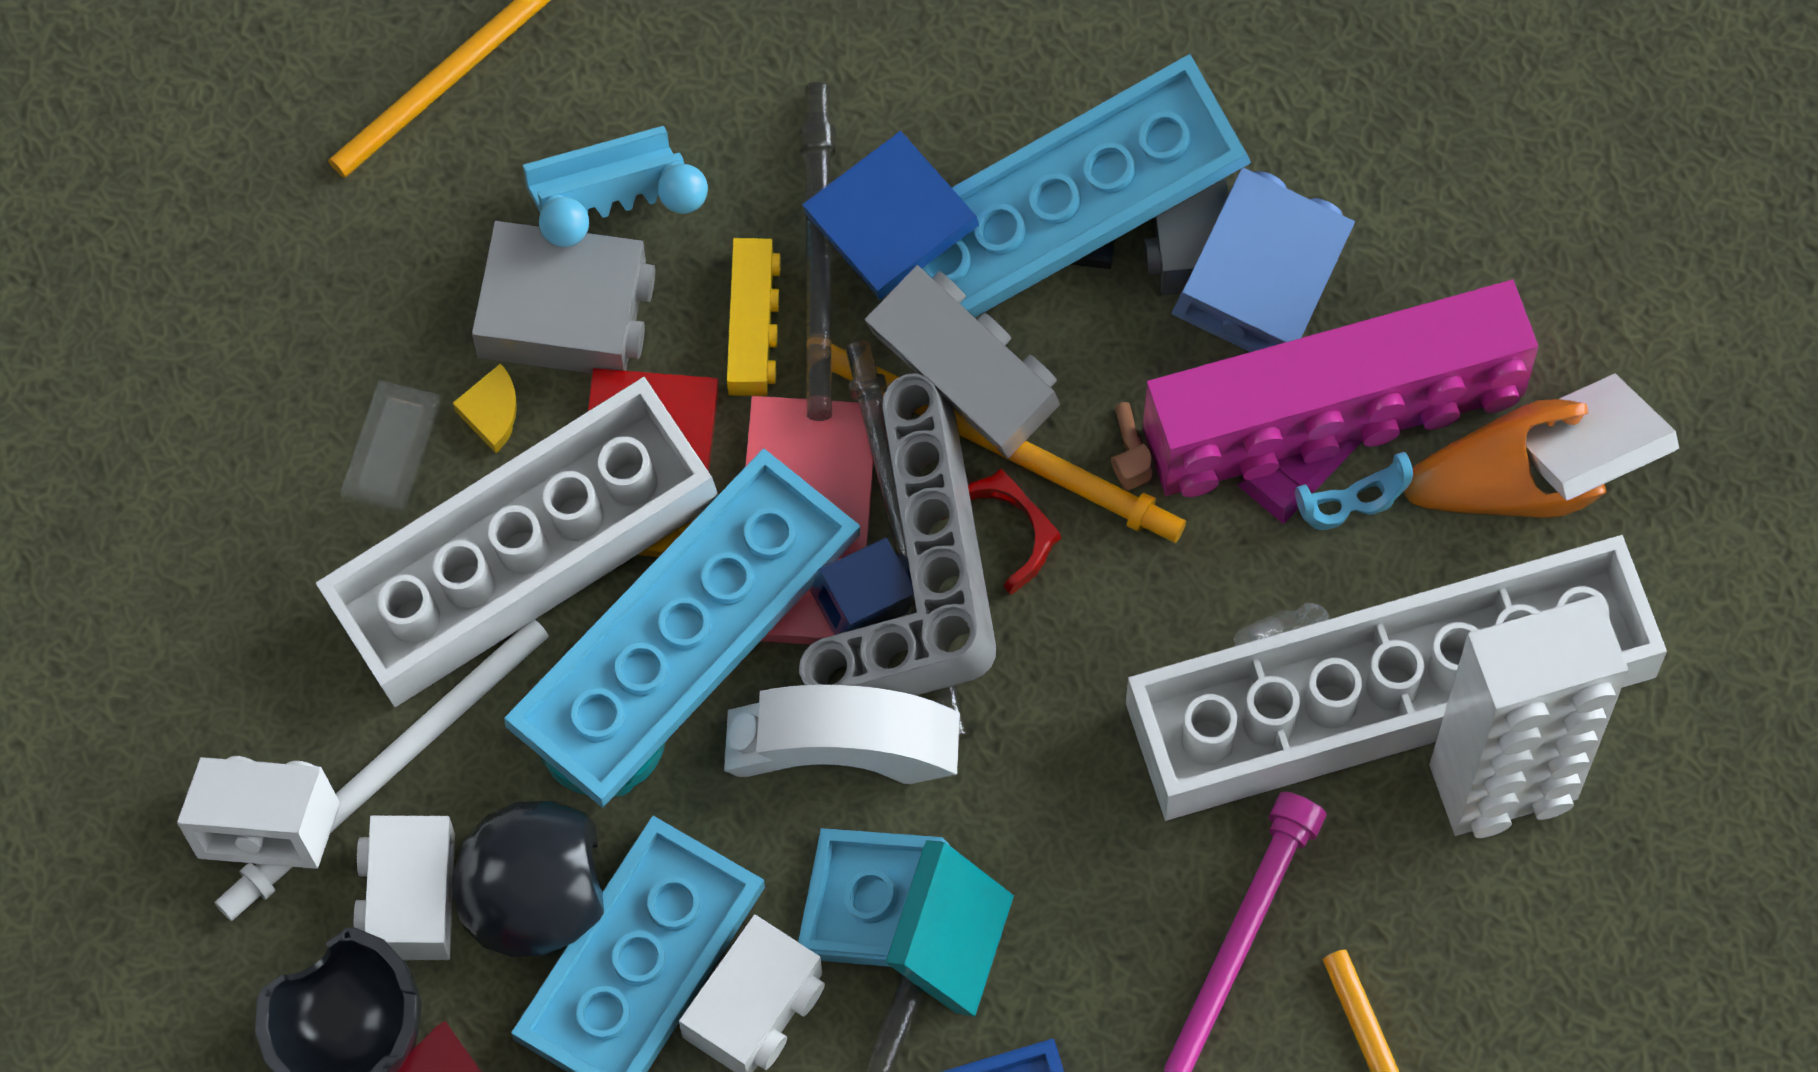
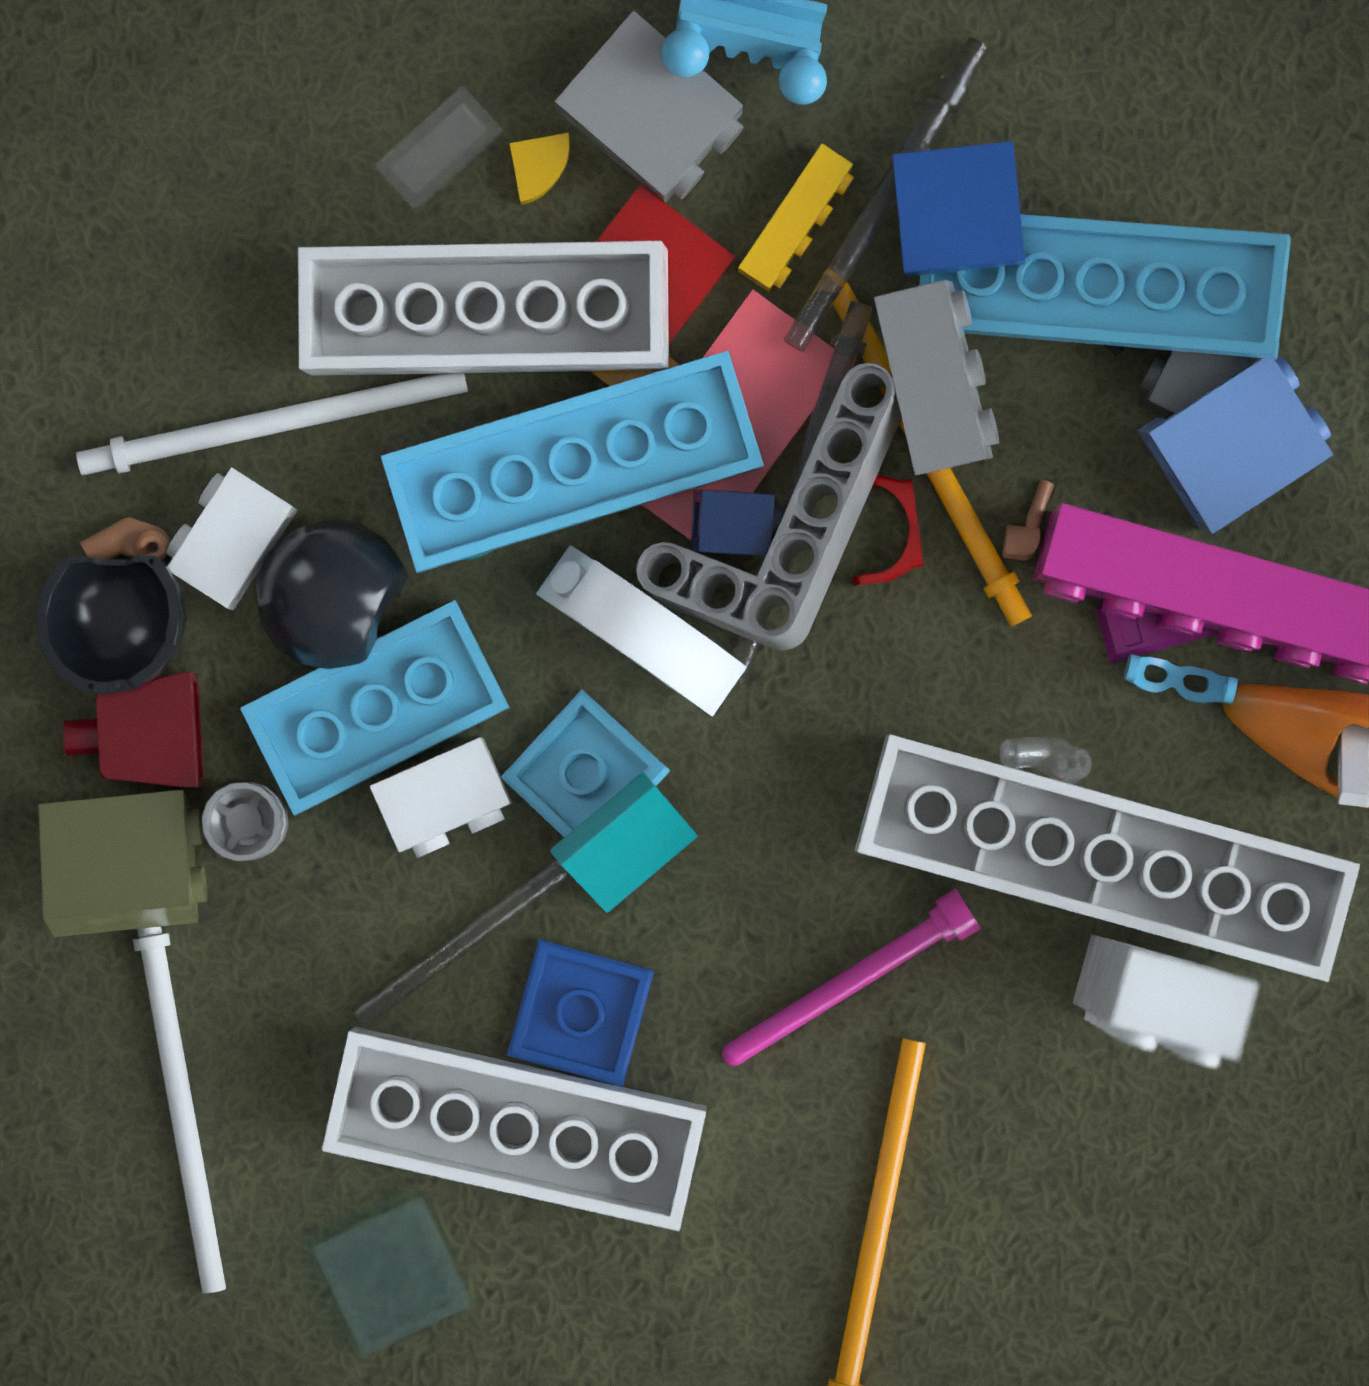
camera: 30 degrees right, 20 degrees up
(259, 812) = (149, 406): white brick -> none
(306, 948) = (127, 538): none -> nougat arm

